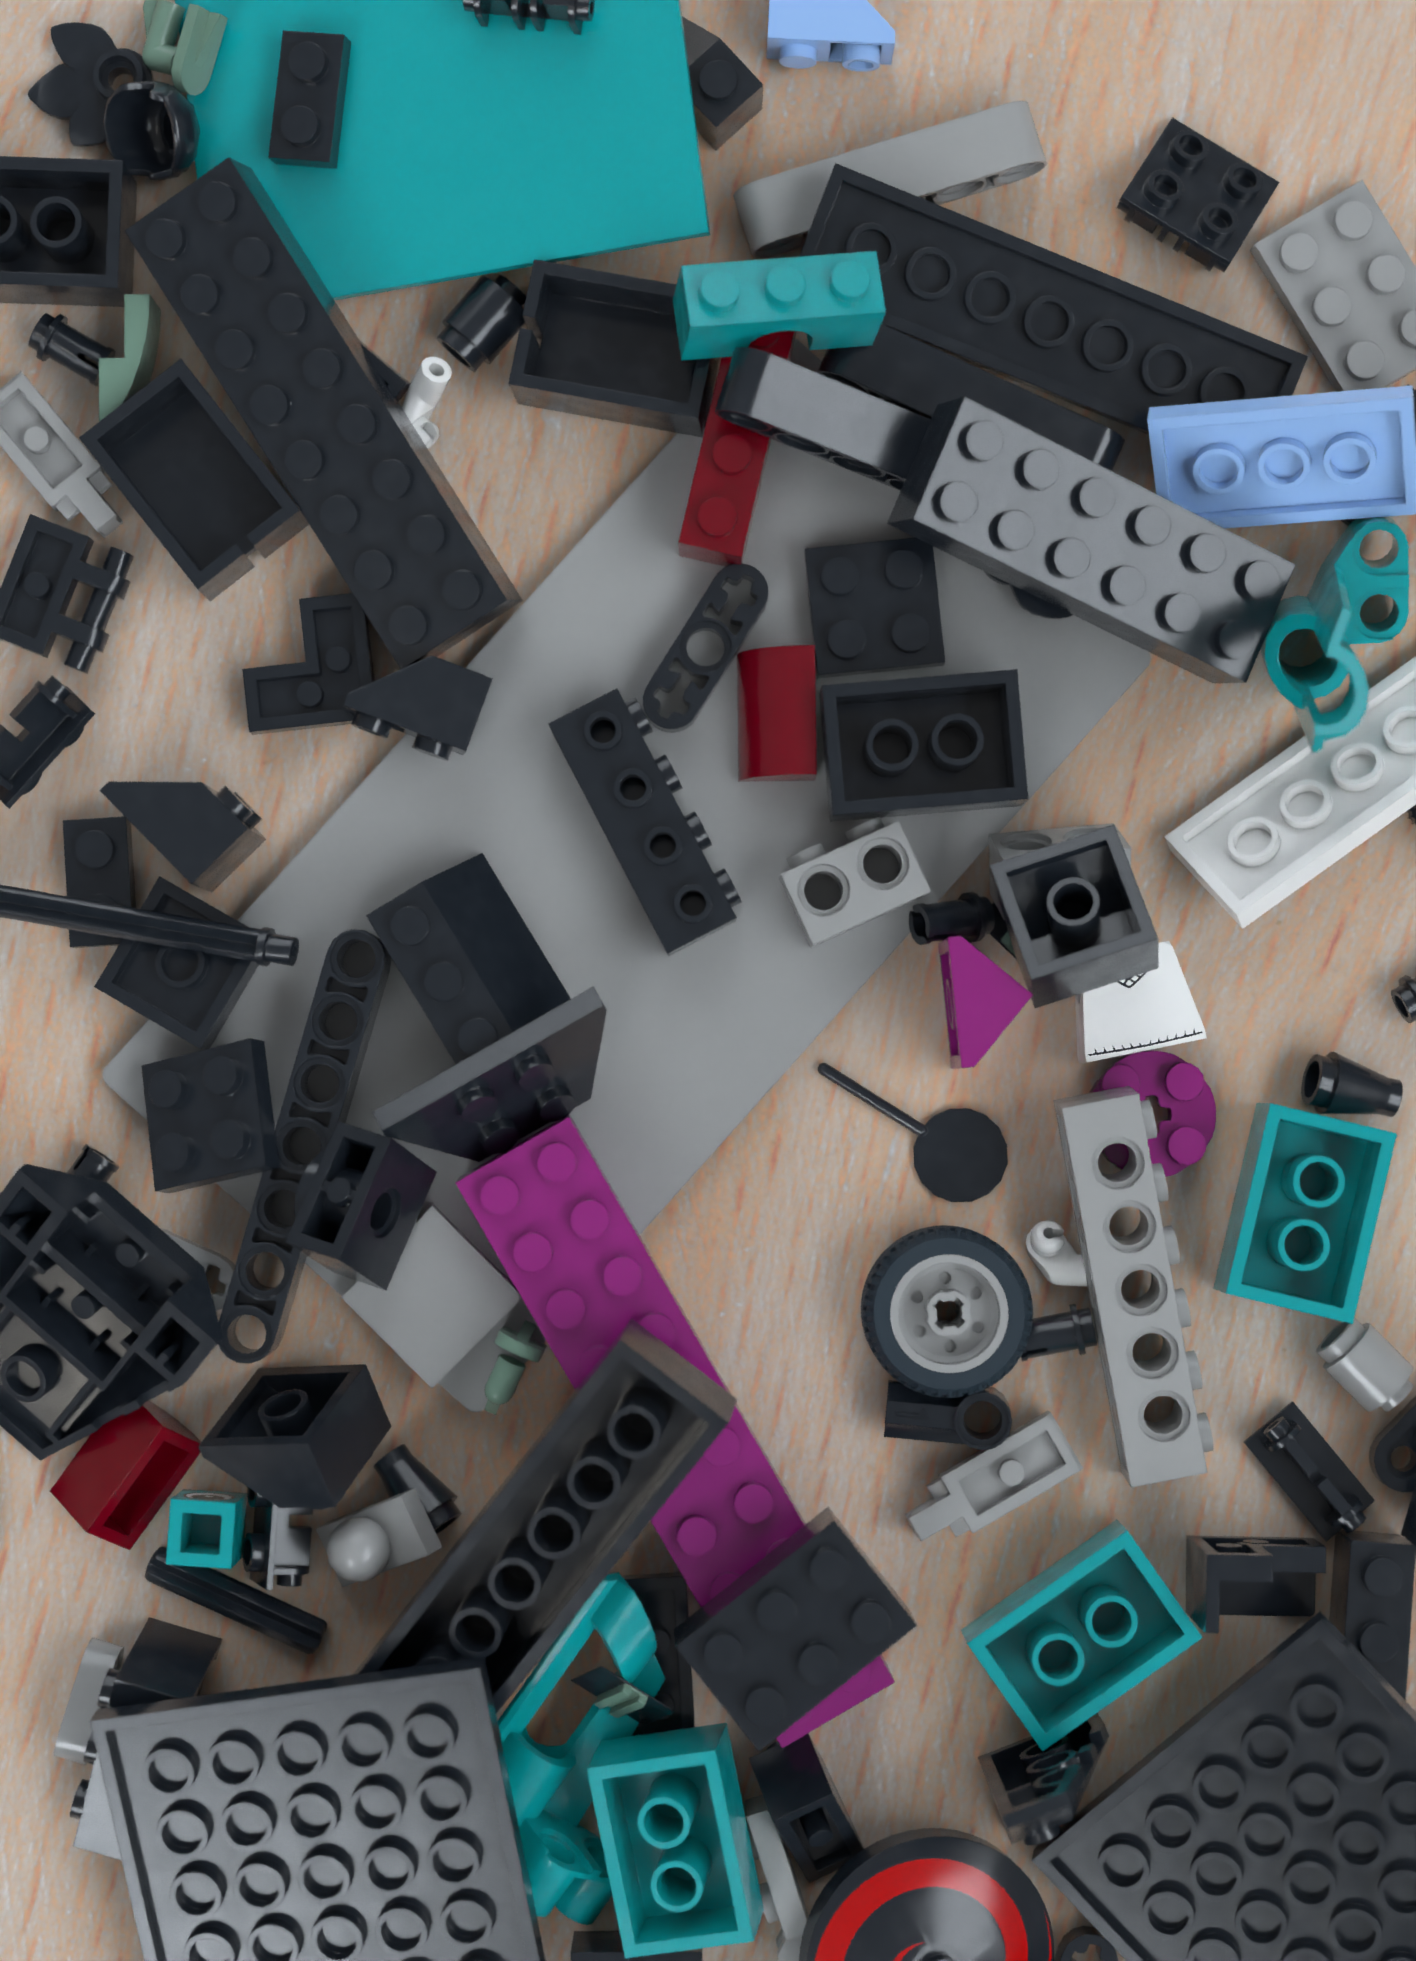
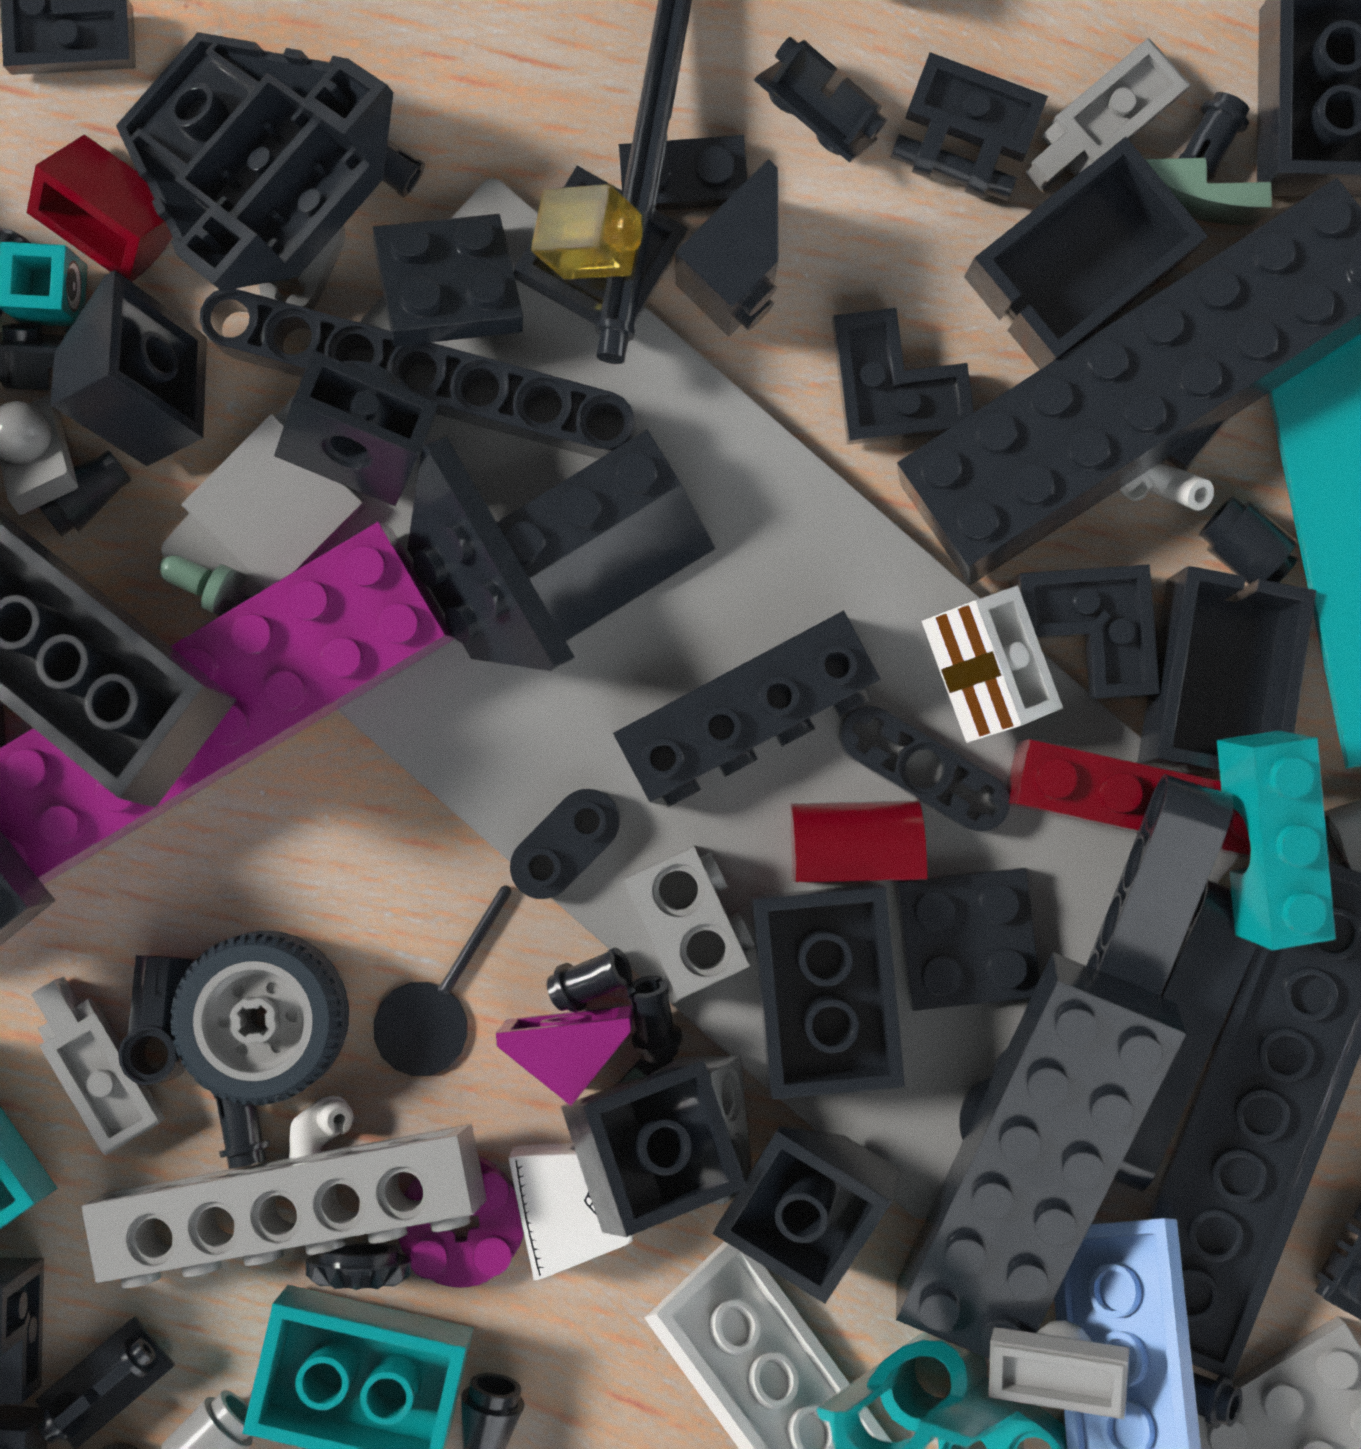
camera: 90 degrees right, 0 degrees up
(169, 971) = (587, 232): none -> clear yellow brick
(425, 700) = (866, 488): black slope -> none
(550, 461) = (1112, 613): none -> black panel
(603, 578) = (992, 664): none -> white brick
(776, 1005) = (564, 844): none -> black plate
(917, 996) = (575, 985): none -> black pin
(1136, 766) = (809, 1207): none -> black slope
(1193, 1212) = (359, 1267): none -> black gear
(1292, 524) = (1059, 1370): none -> light grey tile
(1327, 370) = (1217, 1400): none -> black pin

